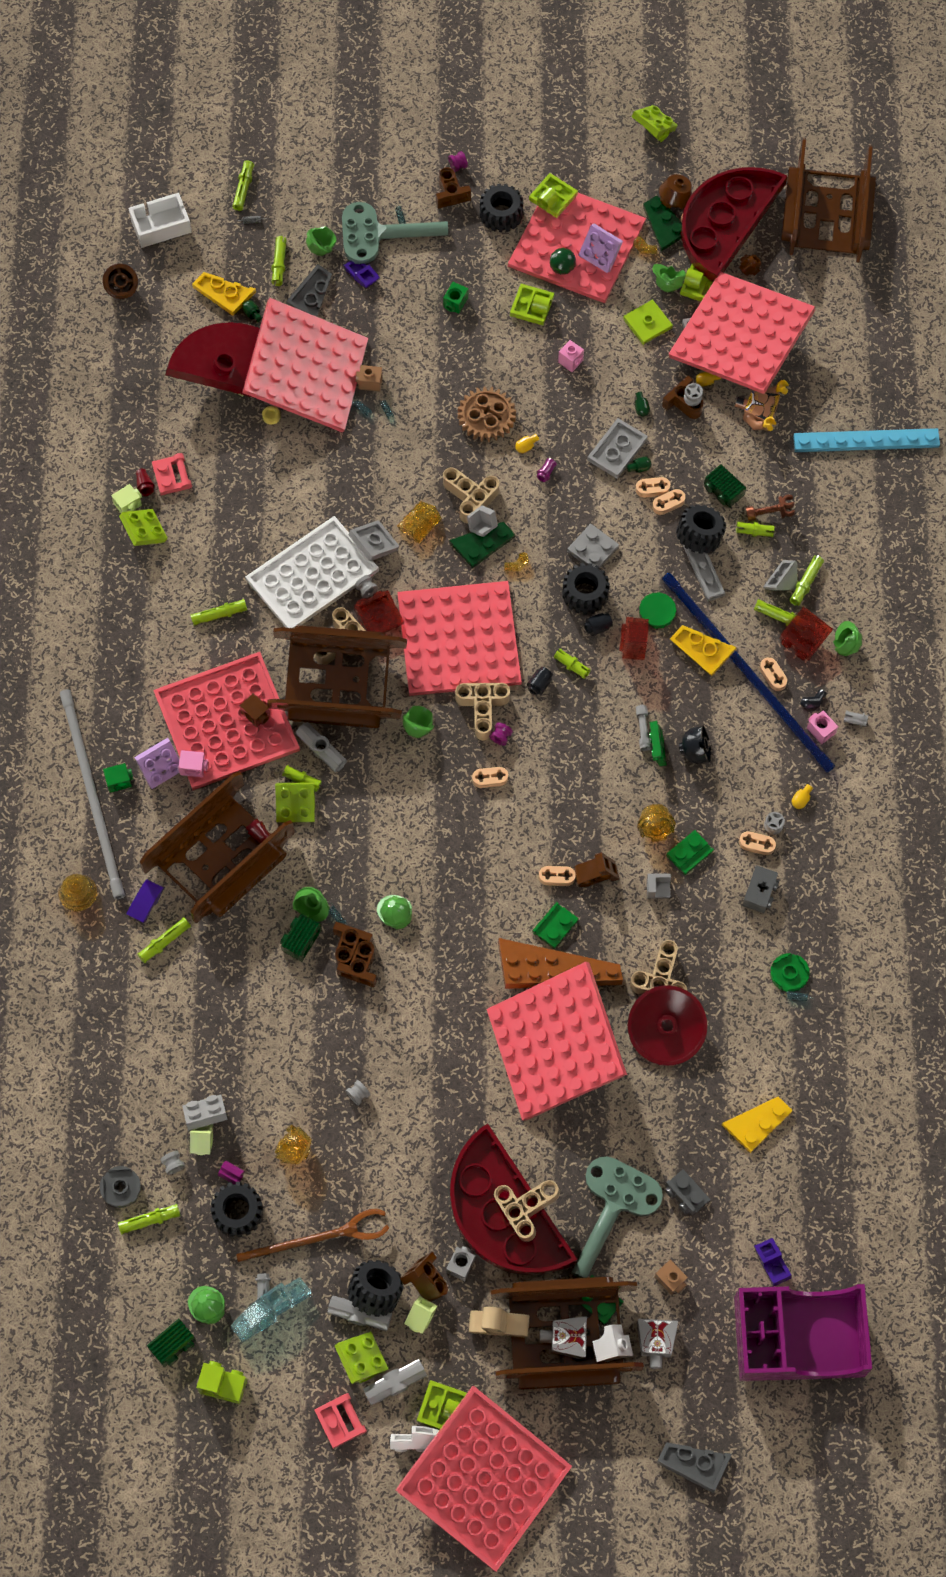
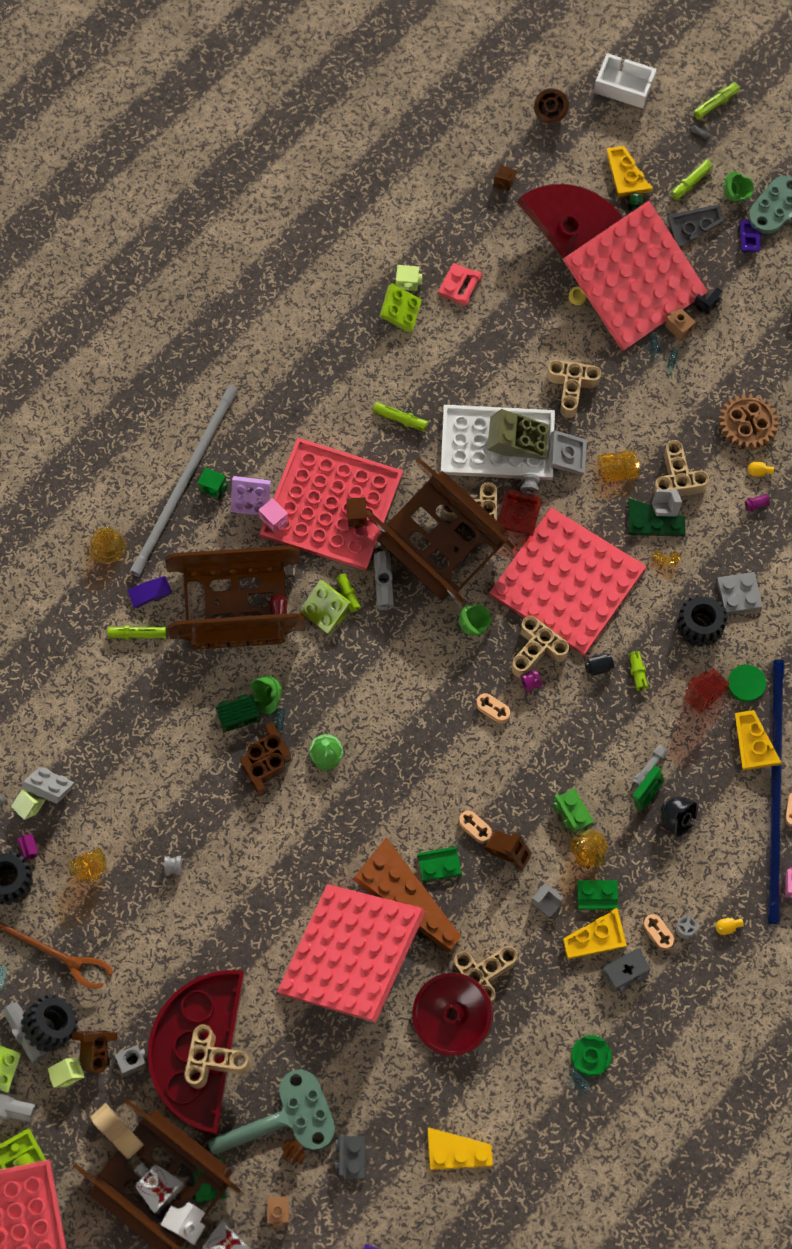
camera: 40 degrees right, 0 degrees up
(131, 365) = (504, 178): none -> reddish brown bracket
(144, 483) = (432, 275): dark red cone -> none
(325, 556) = (517, 435): none -> olive slope
(330, 483) = (572, 382): none -> tan beam
(375, 350) = (713, 300): none -> black bracket
(598, 624) = (687, 656): black brick -> none
(617, 805) = (572, 810): none -> bright green bracket
(643, 1225) = (293, 1152): none -> reddish brown gear
(718, 883) = (598, 937): none -> yellow wing

